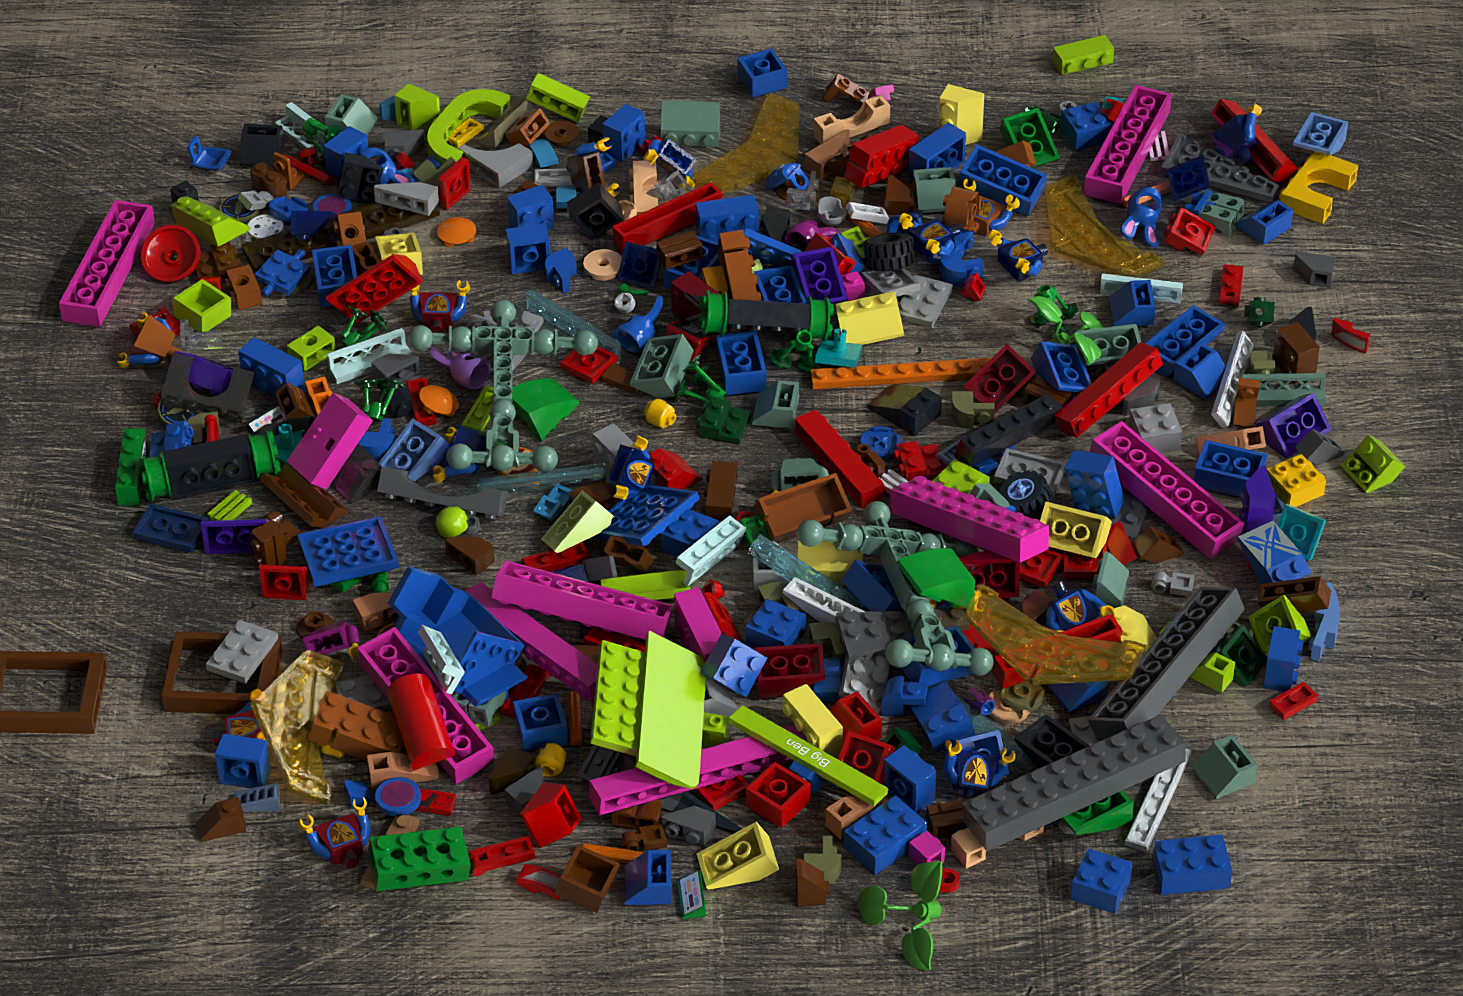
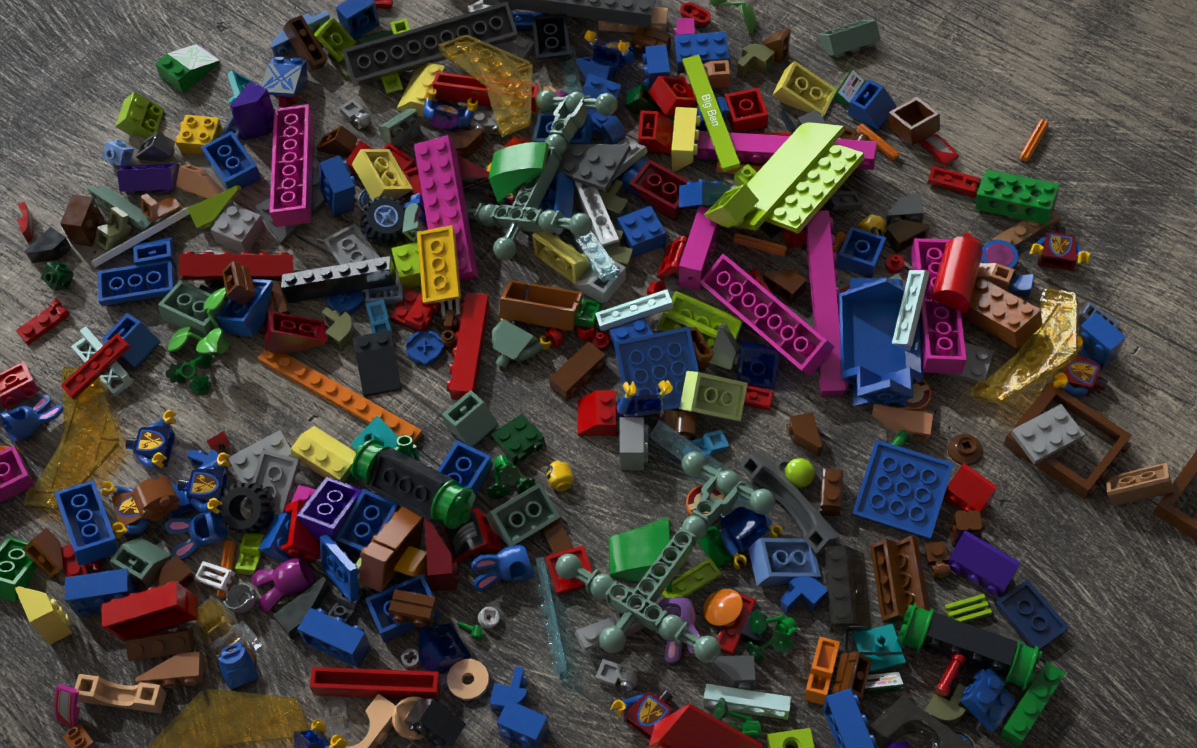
camera: 140 degrees left, 15 degrees up
(131, 656) = (1139, 484): none -> medium nougat slope
(222, 820) = (1136, 313): reddish brown slope -> none
(329, 441) = (856, 589): dark pink brick -> none
(333, 638) = (969, 407): magenta torso -> none
(411, 520) = (831, 492): none -> reddish brown brick
(445, 951) = (1034, 140): none -> orange axle
(501, 742) = (894, 264): none -> red tile
(550, 814) = (906, 174): red slope -> none
(688, 642) = (733, 206): none -> lime slope
(742, 949) = (850, 37): none -> sand green slope
(922, 471) = (438, 265): none -> yellow plate
(940, 434) = (379, 316): none -> dark azure slope
(1080, 362) = (238, 283): none -> reddish brown brick
(1130, 264) = (95, 366): none -> red tile
(1196, 422) = (212, 208): none -> lime slope
(1346, 422) = (118, 153): none -> light blue brick
(1394, 531) = (185, 66): none -> green slope

